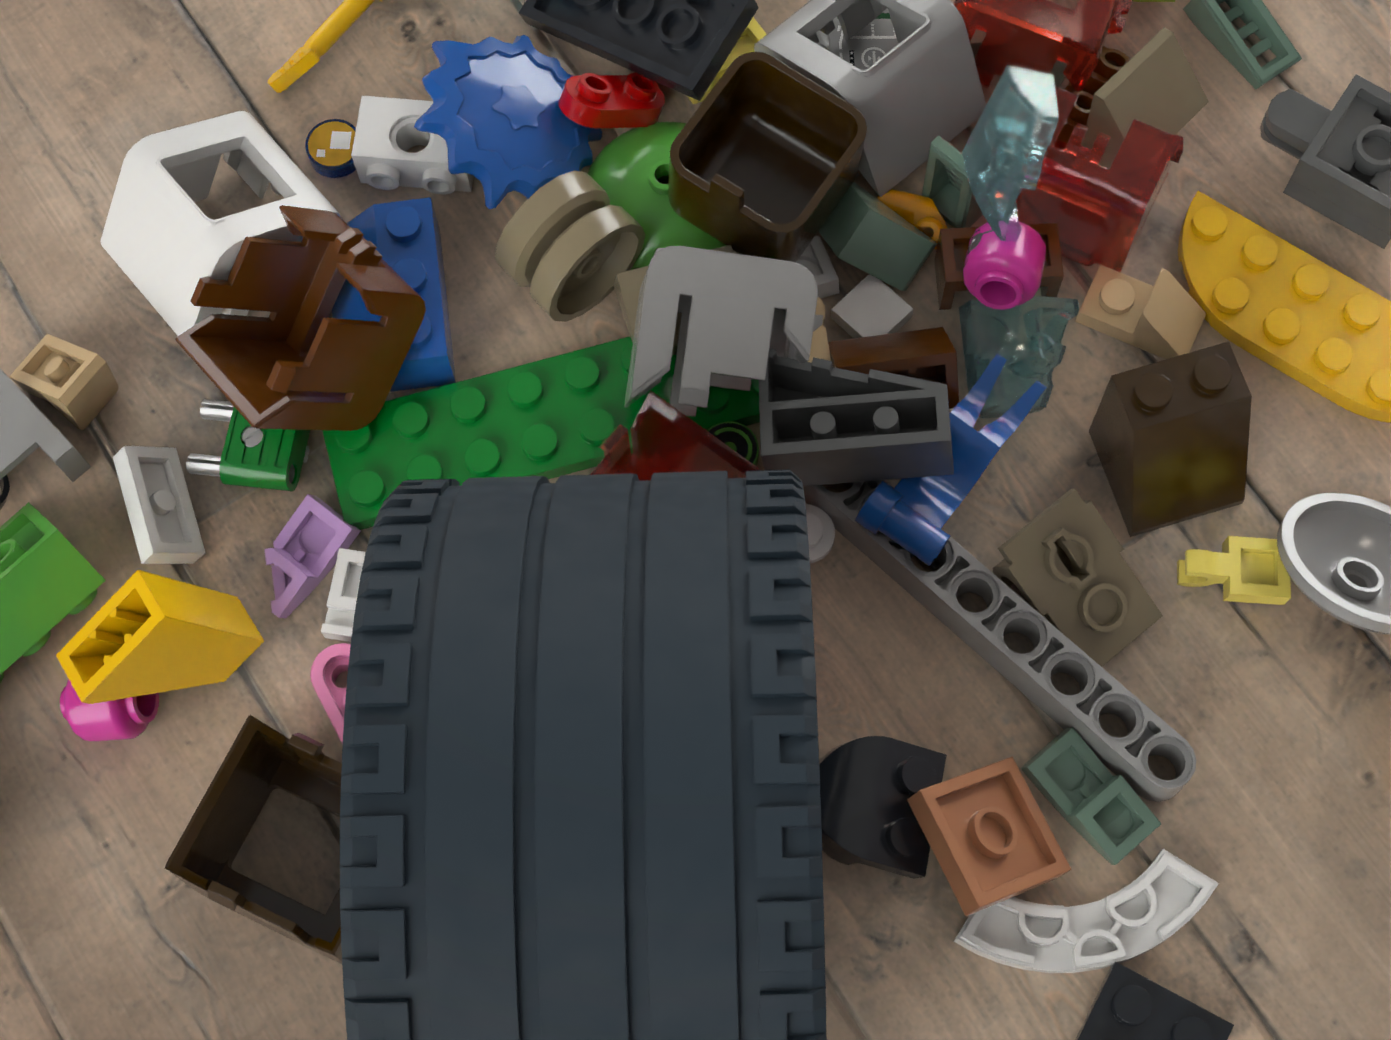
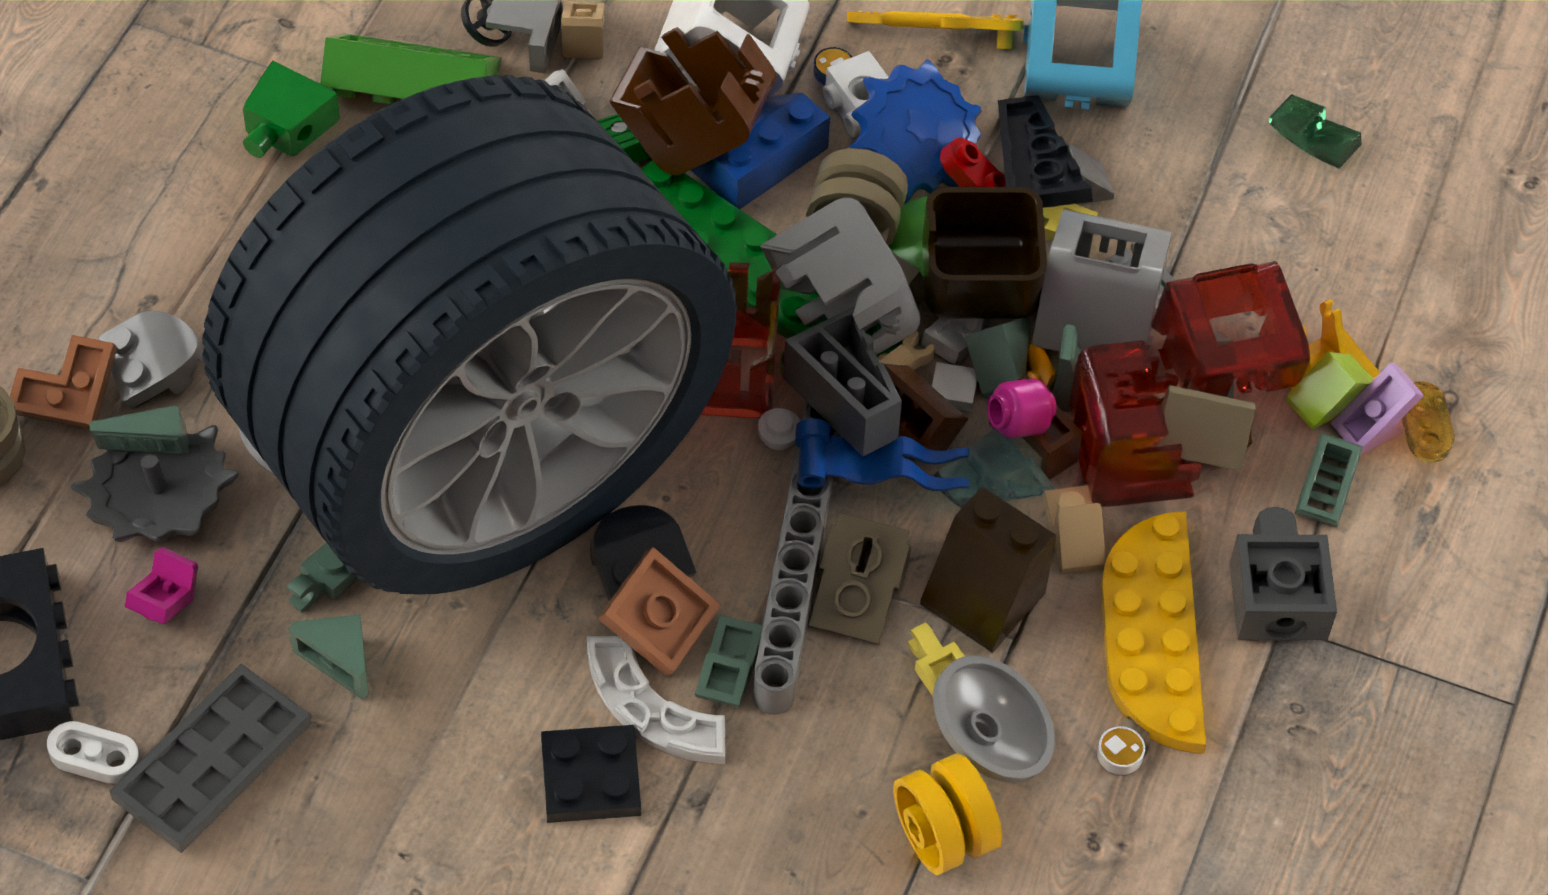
camera: 50 degrees right, 15 degrees down
(1010, 145) = (1095, 340): clear light blue slope -> none

